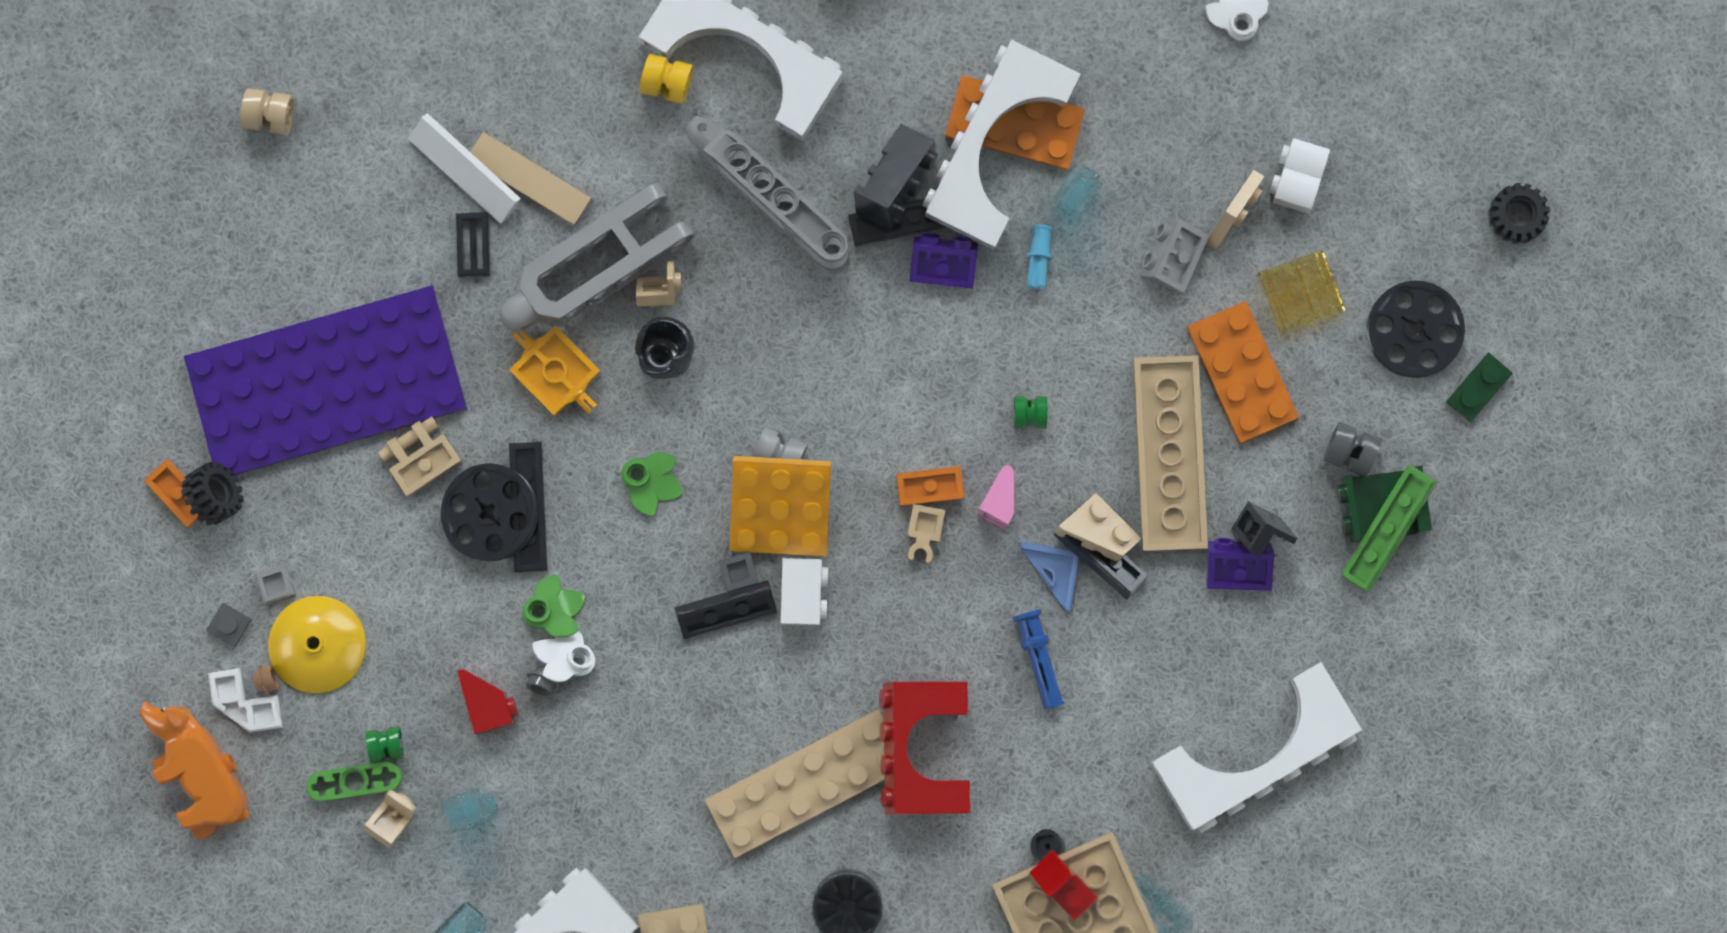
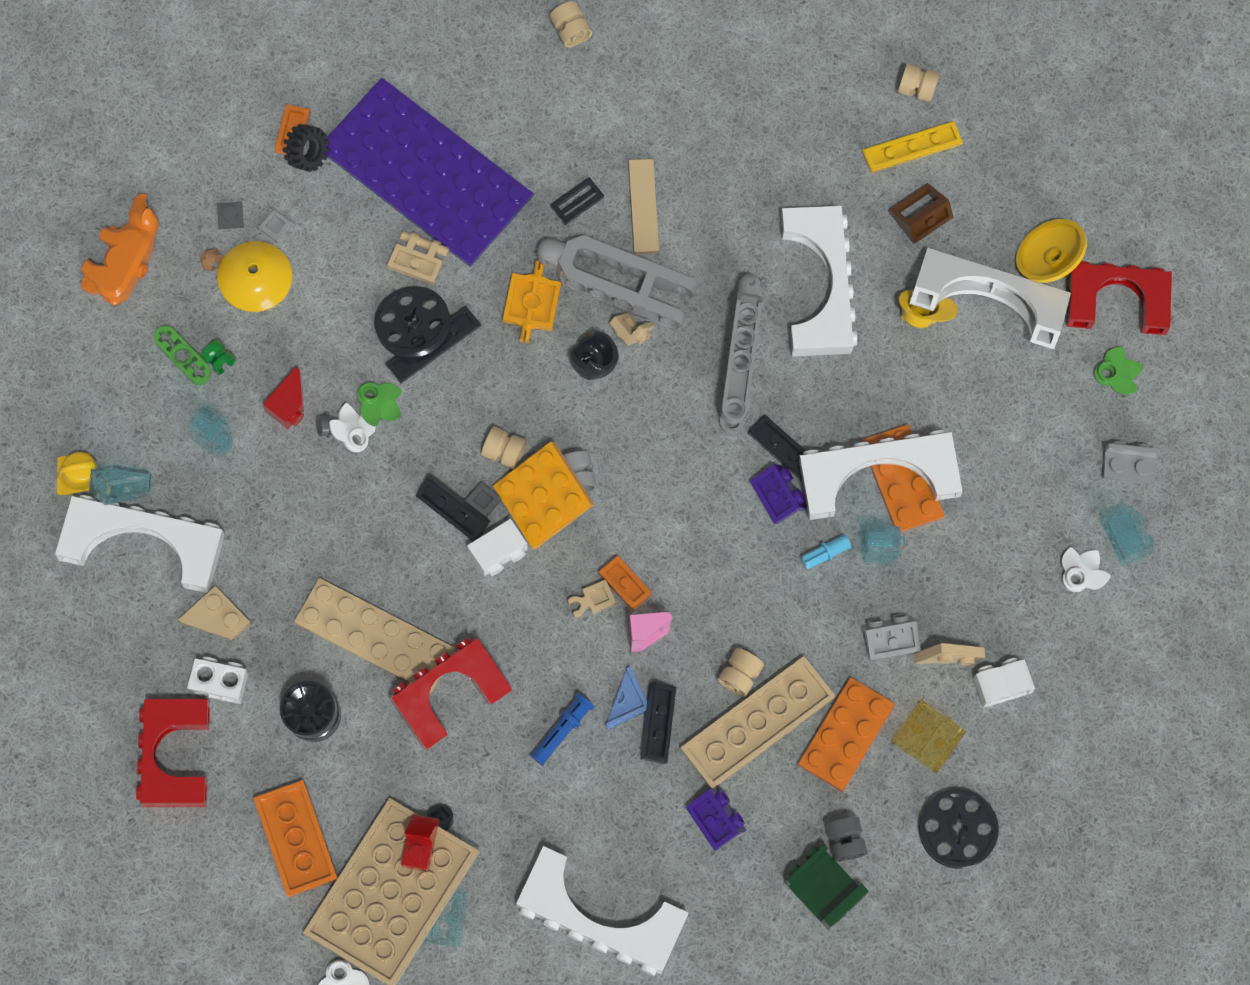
camera: 50 degrees right, 10 degrees down
(229, 698) = (182, 266): white tile -> none
(390, 818) = (173, 392): tan bracket -> none
(464, 168) = (621, 163): white tile -> none
(655, 484) = (503, 412): bright green plate -> none
(666, 79) = (768, 244): yellow wheel -> none
(699, 510) = (505, 448): none -> tan wheel
(895, 178) = (808, 424): black wedge -> none
(1030, 412) = (719, 613): green wheel -> none
(1100, 529) = (674, 709): tan wing -> none
(1107, 434) = (741, 670): none -> tan wheel
(1257, 526) = (750, 807): black panel -> none
(1389, 528) = (811, 898): bright green tile -> none
(1479, 387) = (951, 898): dark green plate -> none
(1532, 200) = (1097, 833): black tyre -> none

